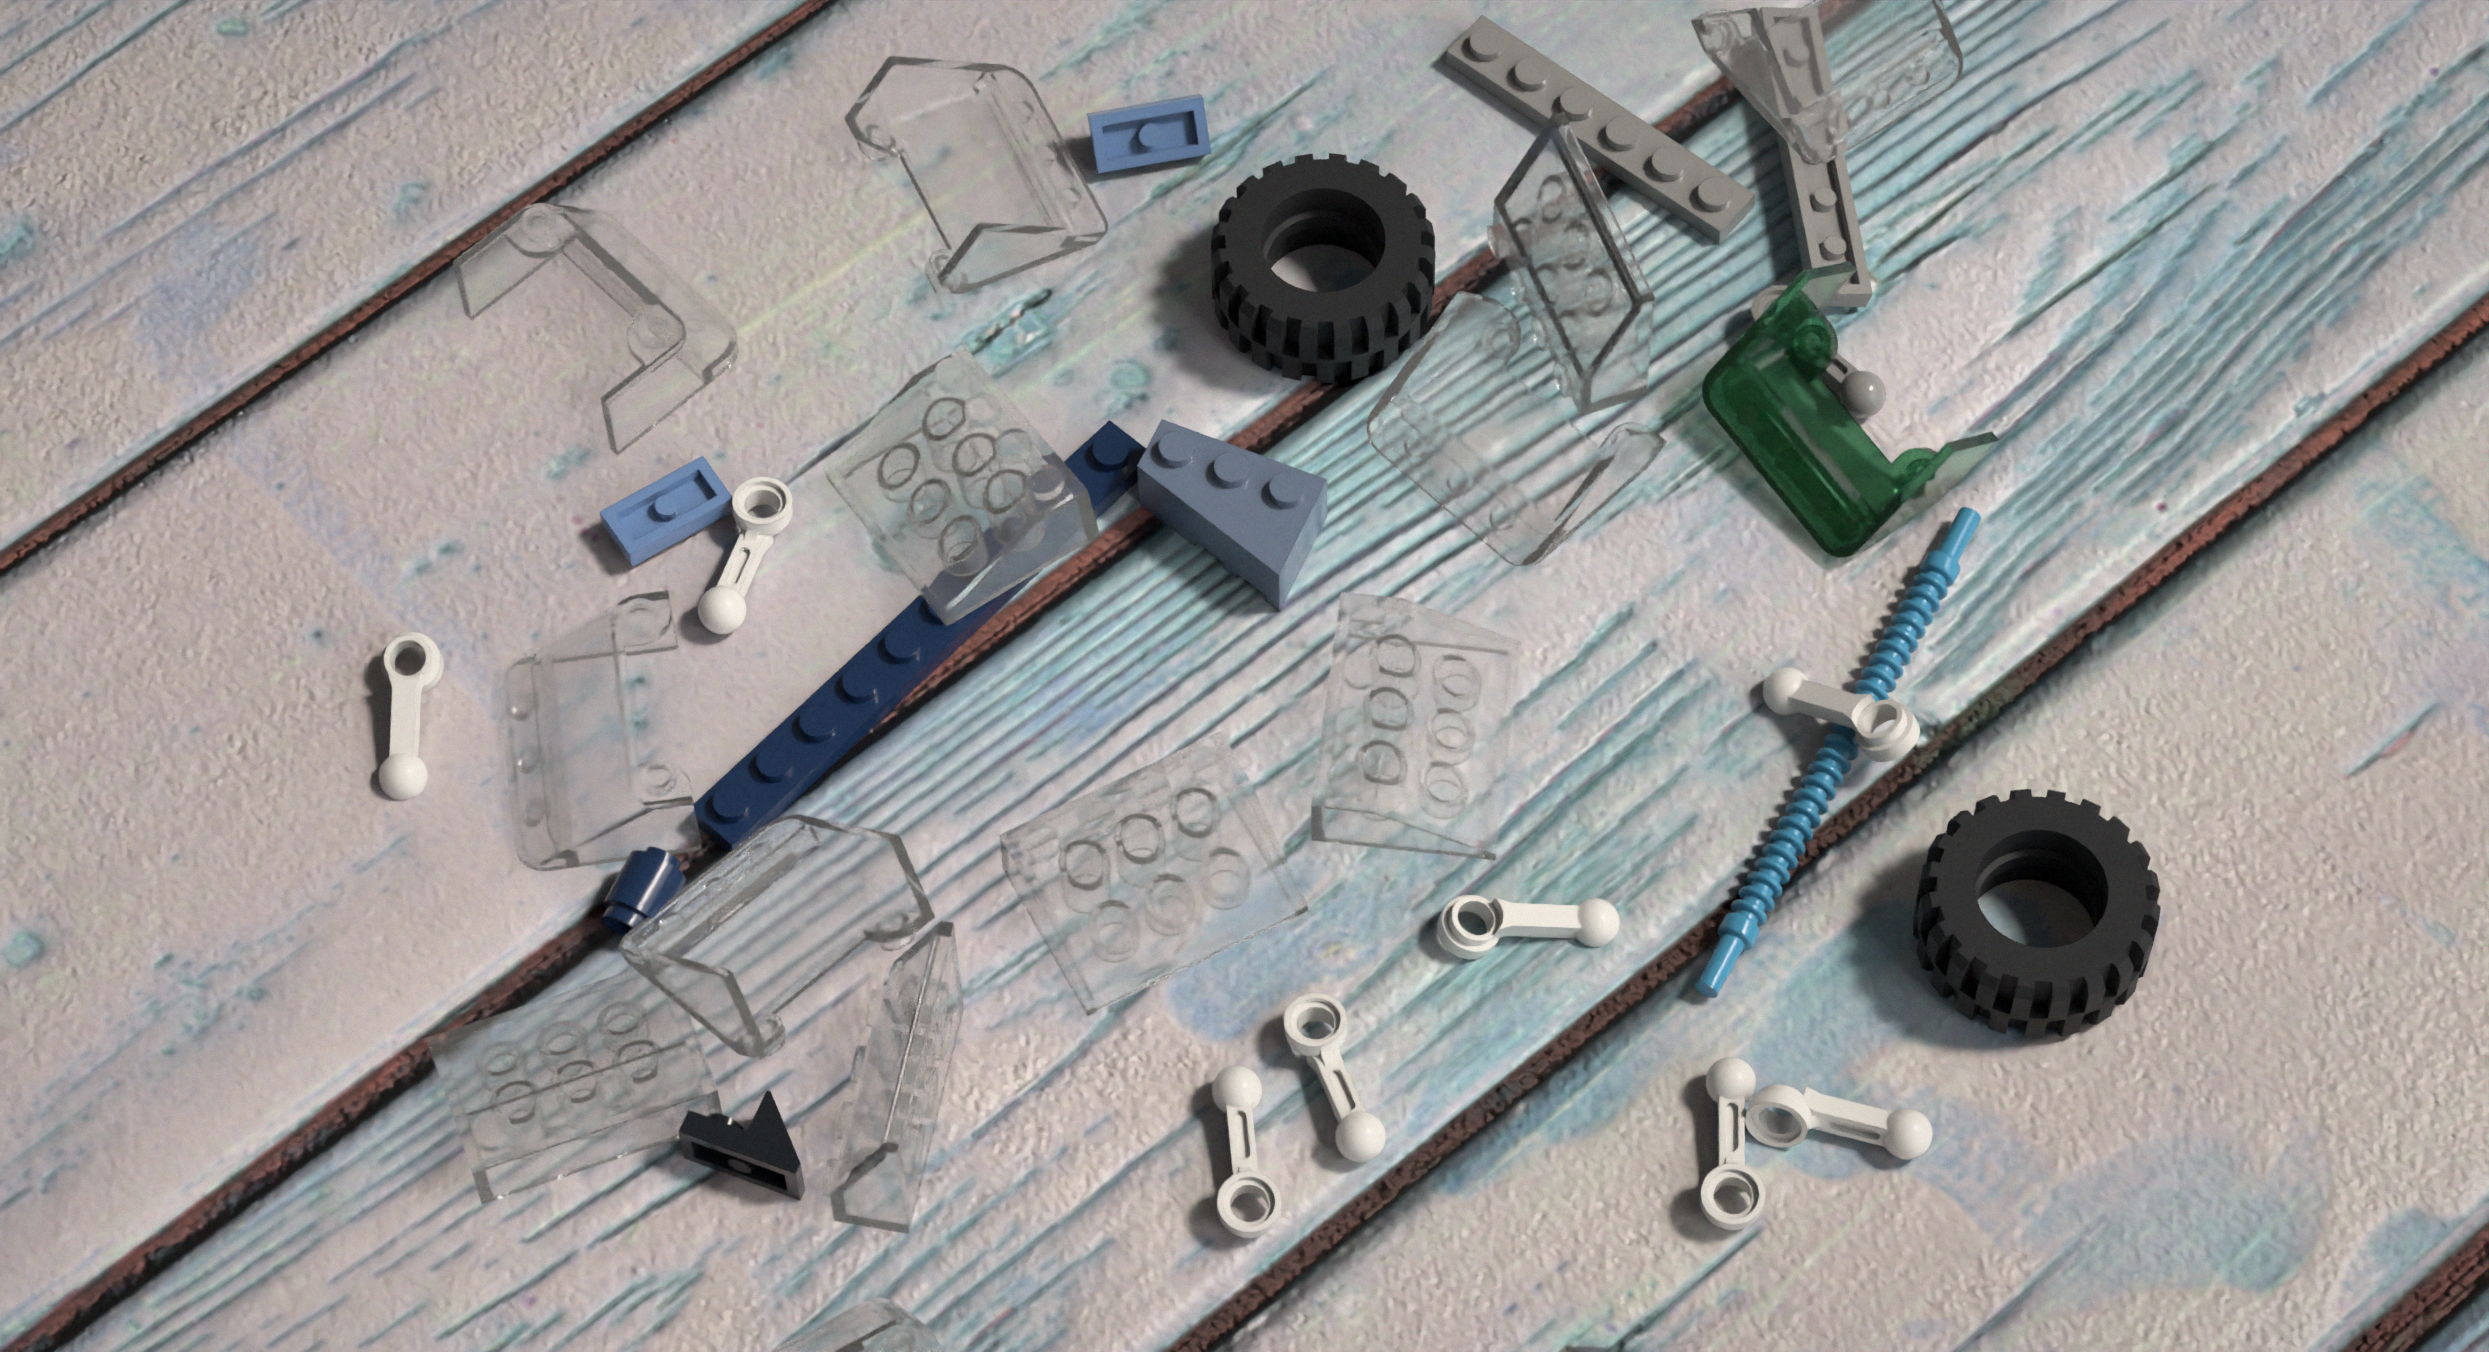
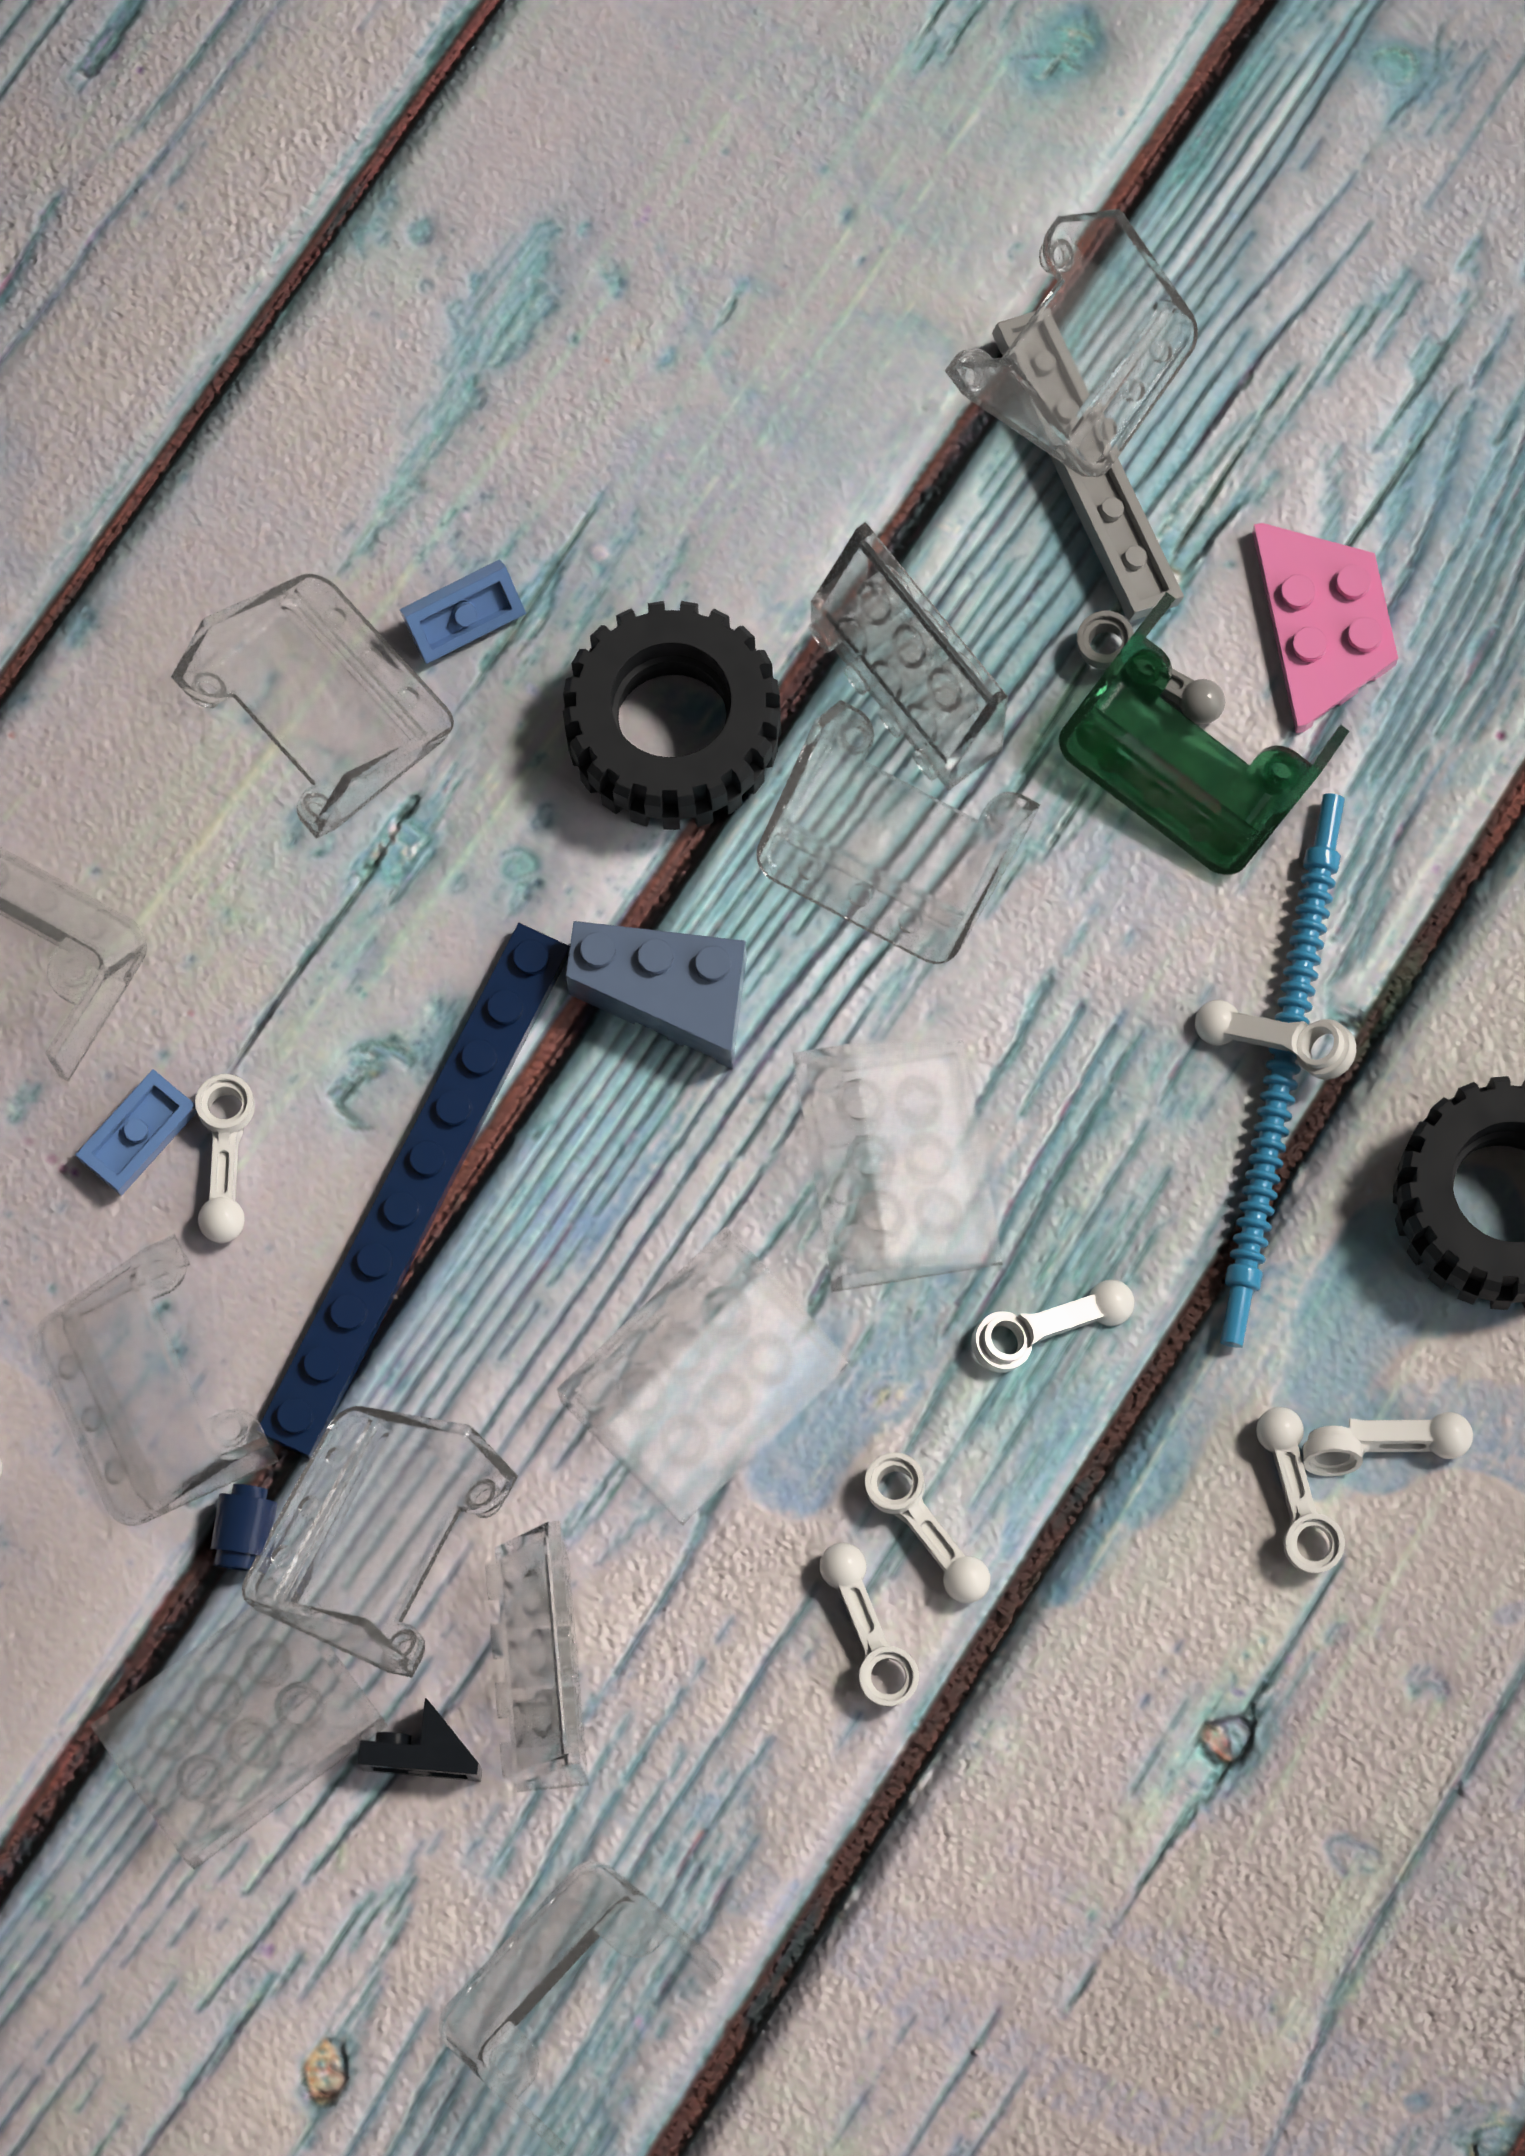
camera: 15 degrees left, 15 degrees up
(962, 488) = (406, 1041): clear slope -> none
(1603, 129) = (879, 485): light grey plate -> none
(2011, 352) = (1324, 618): none -> bright pink wing

